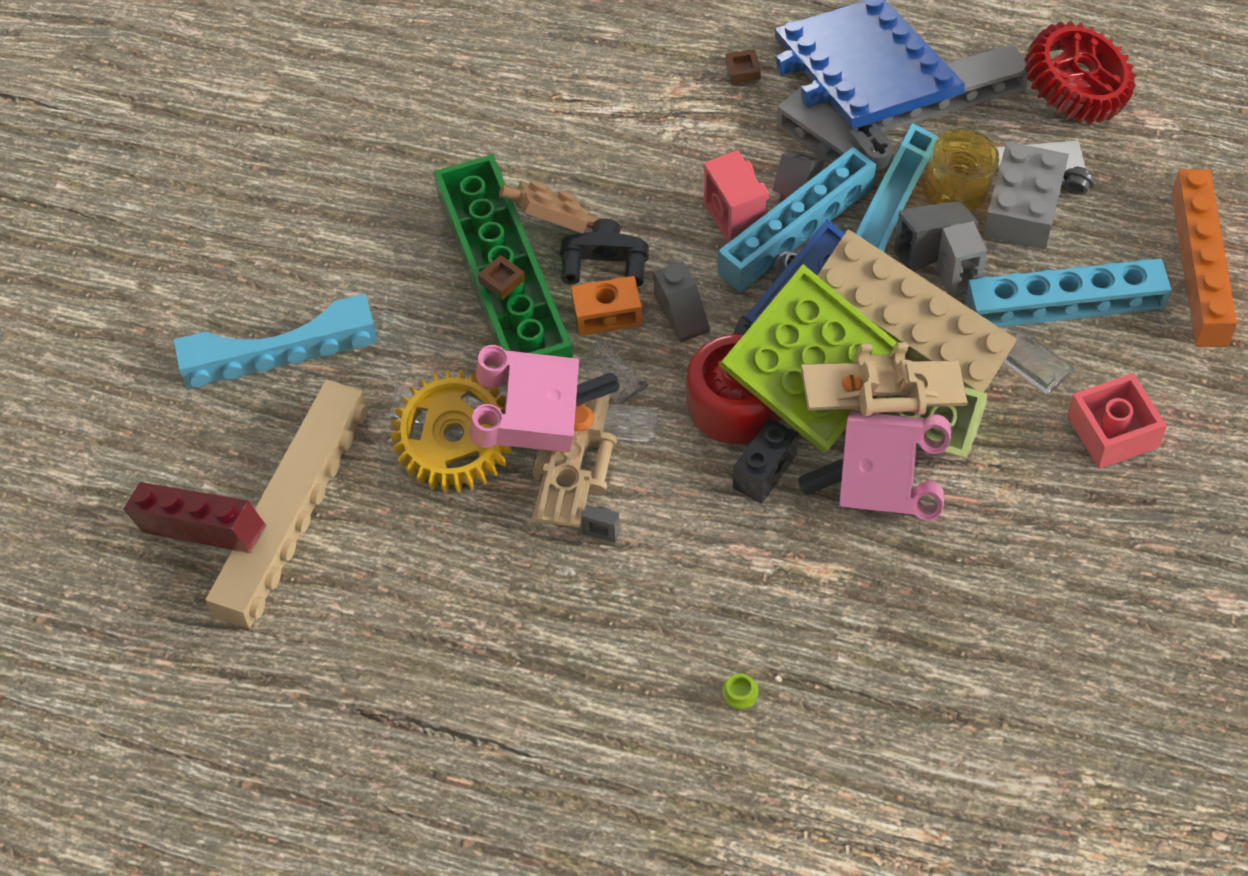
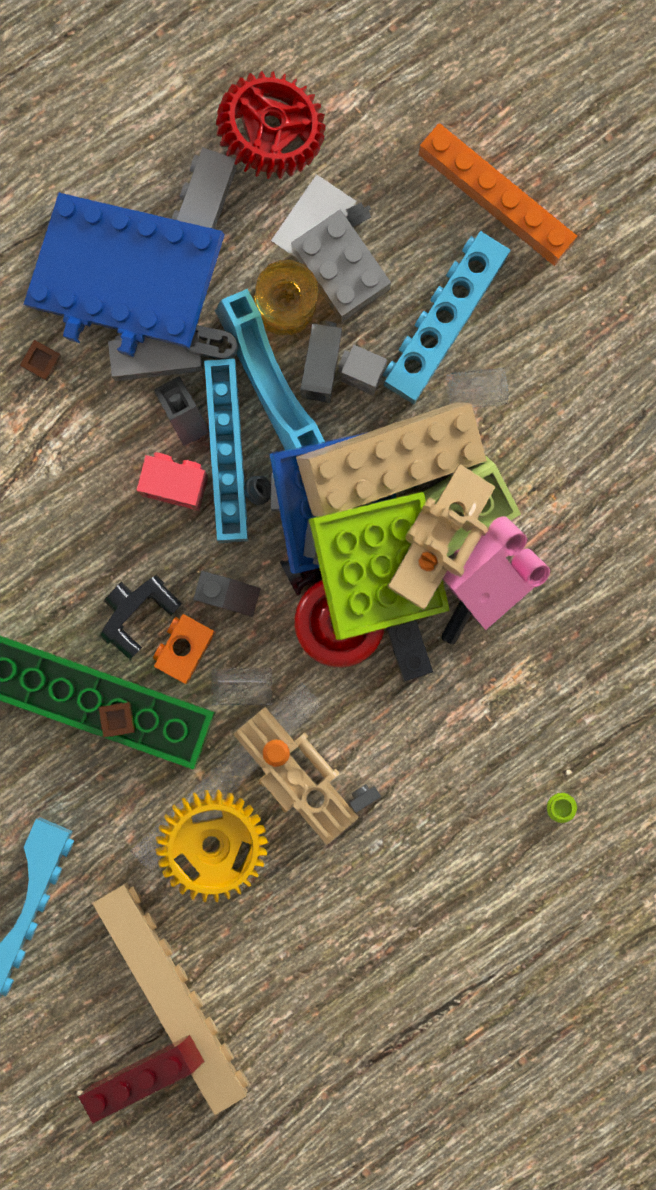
camera: 55 degrees left, 30 degrees up
(537, 402) = (251, 778): bright pink piece -> none
(554, 207) = (68, 624): medium nougat plate -> none
(1116, 420) = (577, 387): coral brick -> none

